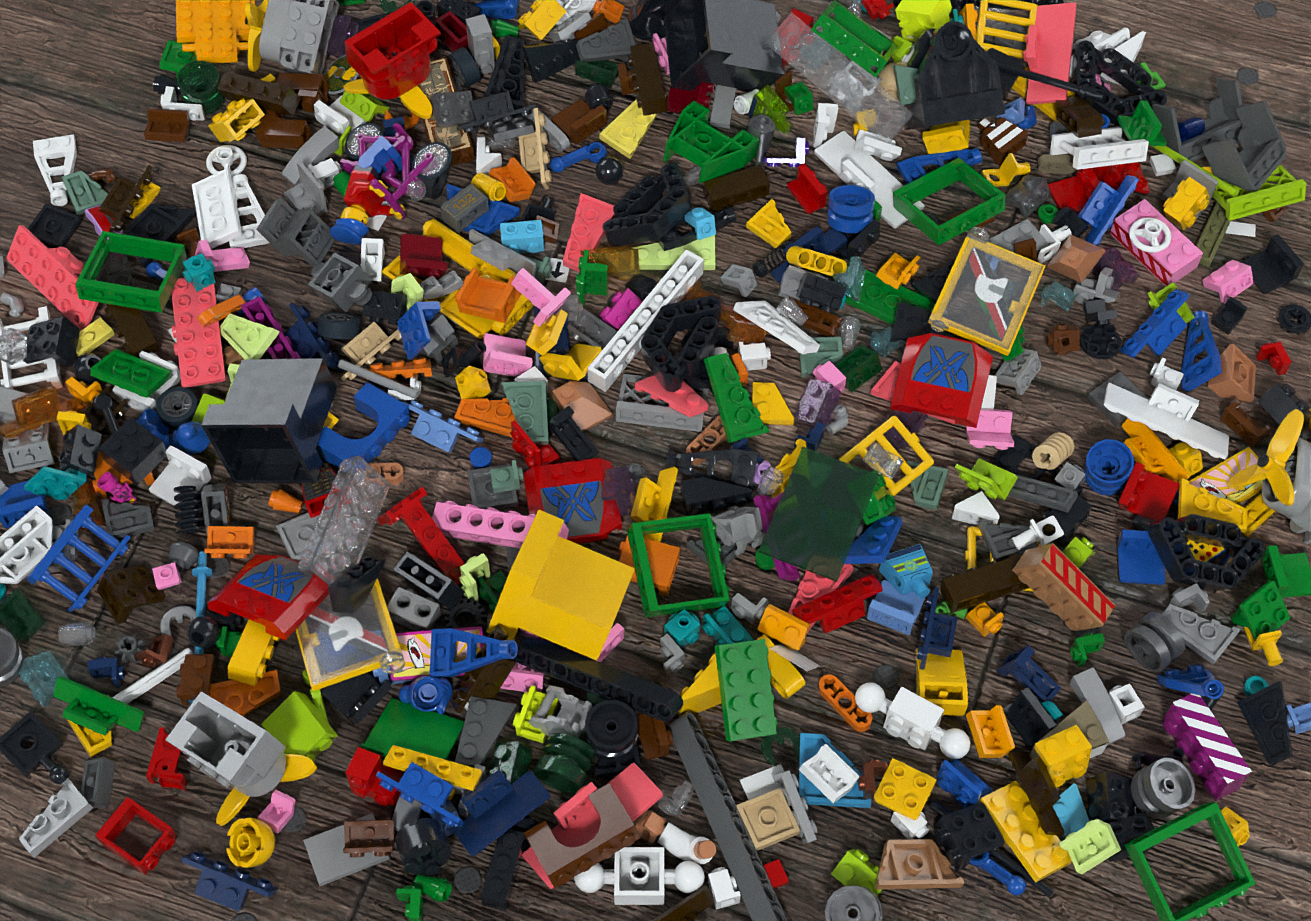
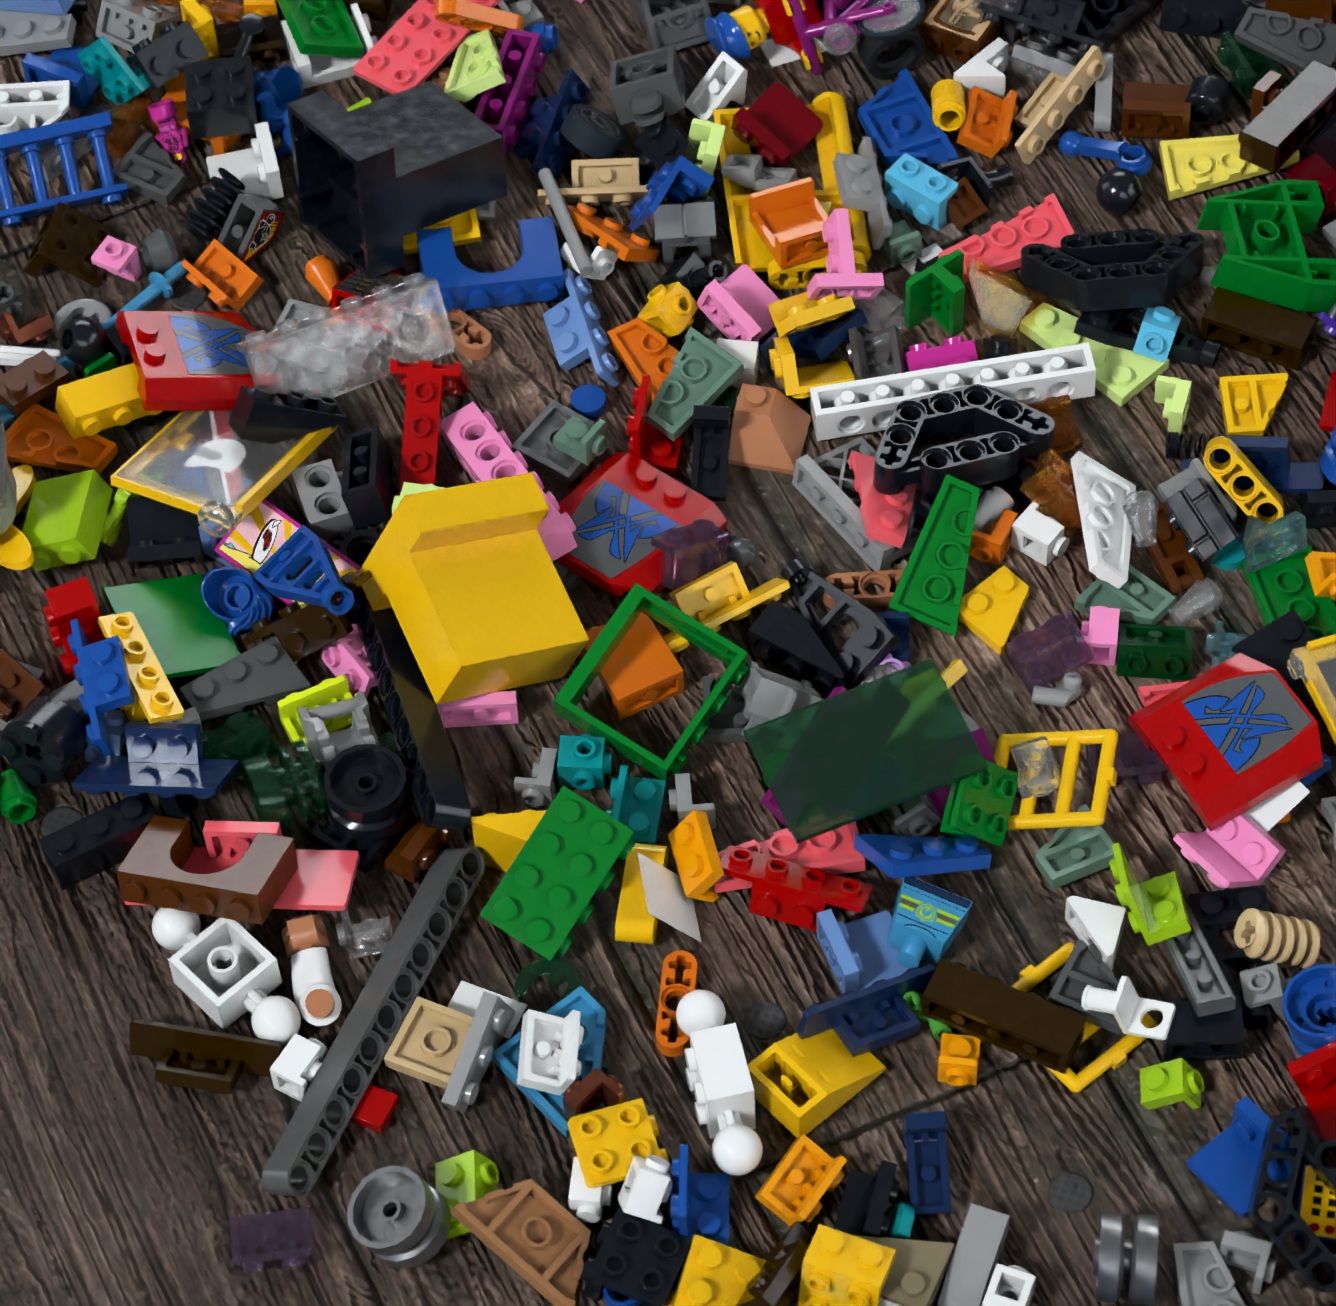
camera: 50 degrees right, 5 degrees down
(173, 399) = (335, 81): wheel -> none
(464, 208) = (886, 106): dark grey brick -> none
(741, 278) = (1133, 439): light grey bracket -> none
(742, 248) = (1176, 397): none -> yellowish green bracket
(813, 437) = (995, 688): dark blue bracket -> none
(942, 797) = (646, 1187): none -> white brick
(1063, 588) = (1073, 1090): medium nougat brick -> none
(1086, 644) = (1044, 1192): green bracket -> none

